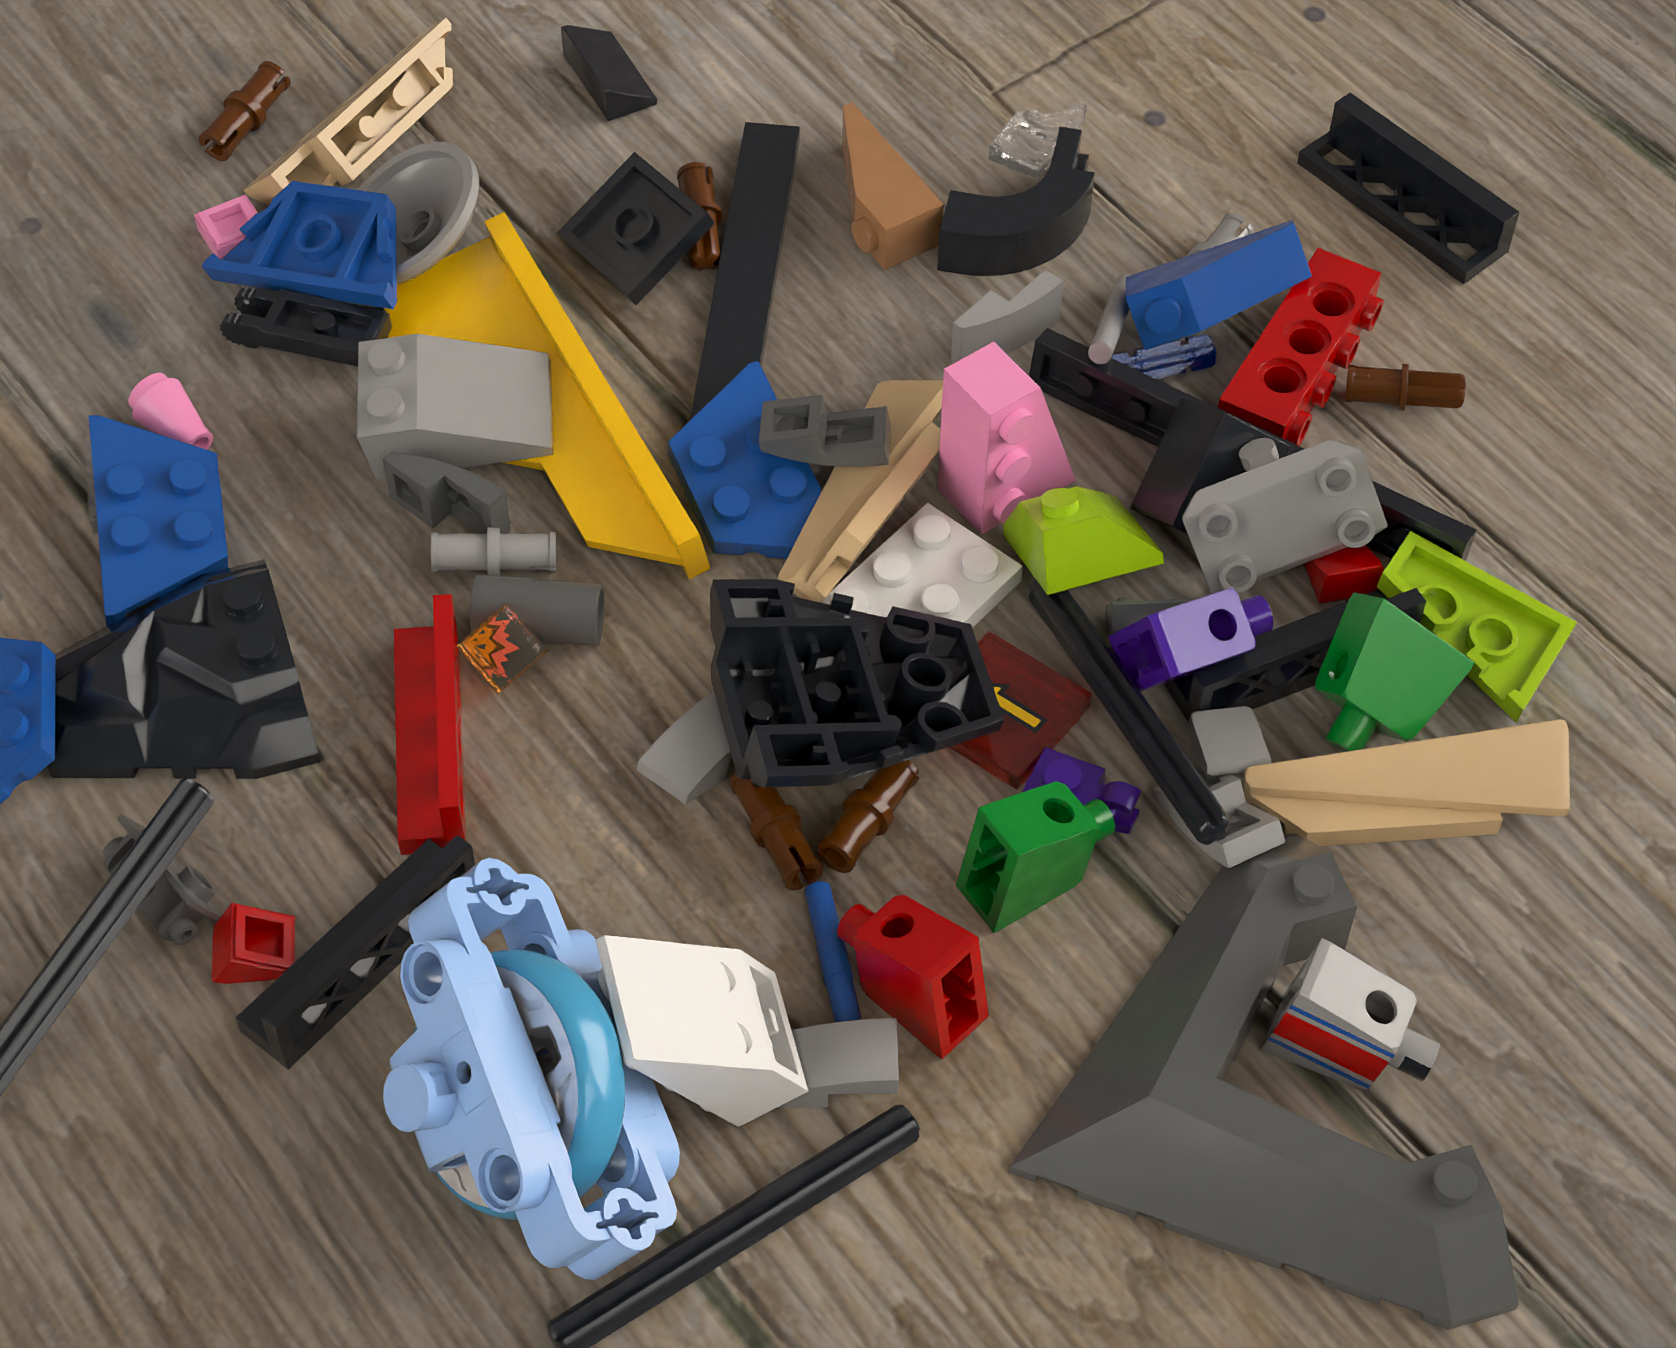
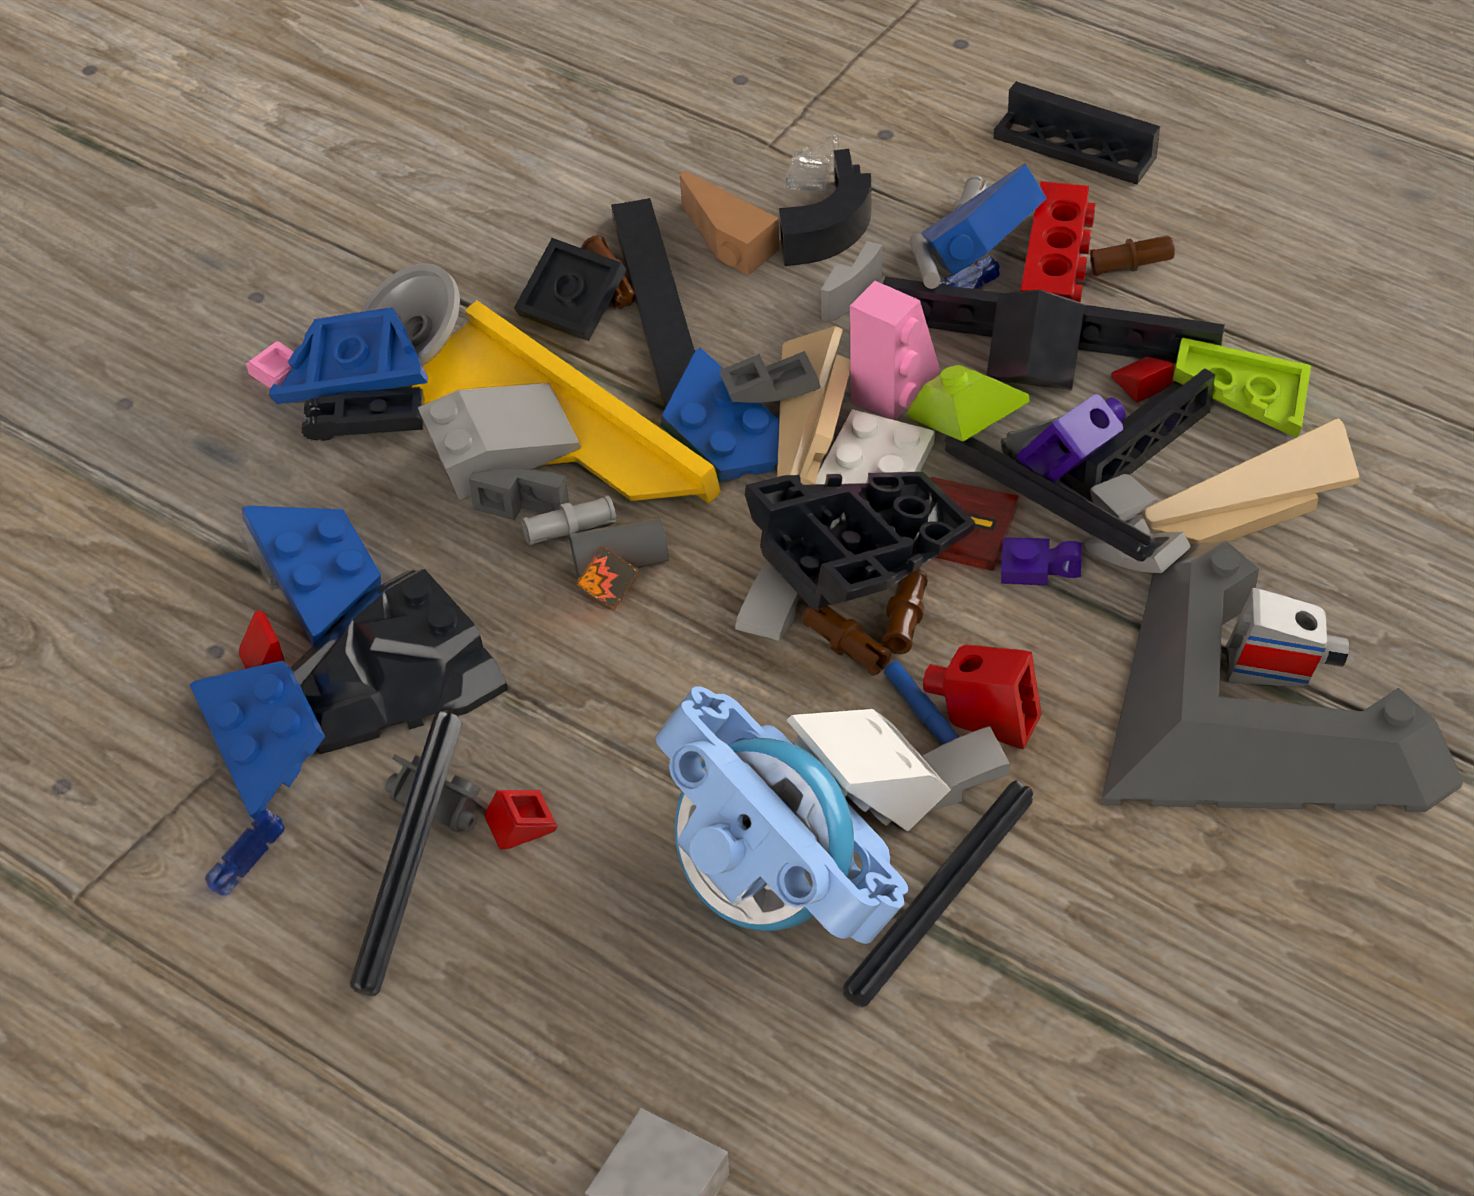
camera: 15 degrees left, 5 degrees down
(41, 610) = (260, 643): none -> red slope
(166, 409) = (290, 490): bright pink cone -> none
(244, 111) = (249, 287): reddish brown pin -> none
(350, 956) = (598, 796): black fence -> none
(366, 121) = (339, 273): tan wedge -> none
(429, 731) = (582, 645): red fence -> none
(606, 71) = (495, 198): black slope -> none
(1029, 851) = (1026, 599): green torso -> none
(1282, 512) = (1098, 345): light grey shield -> none
(1385, 673) = (1208, 425): green torso -> none

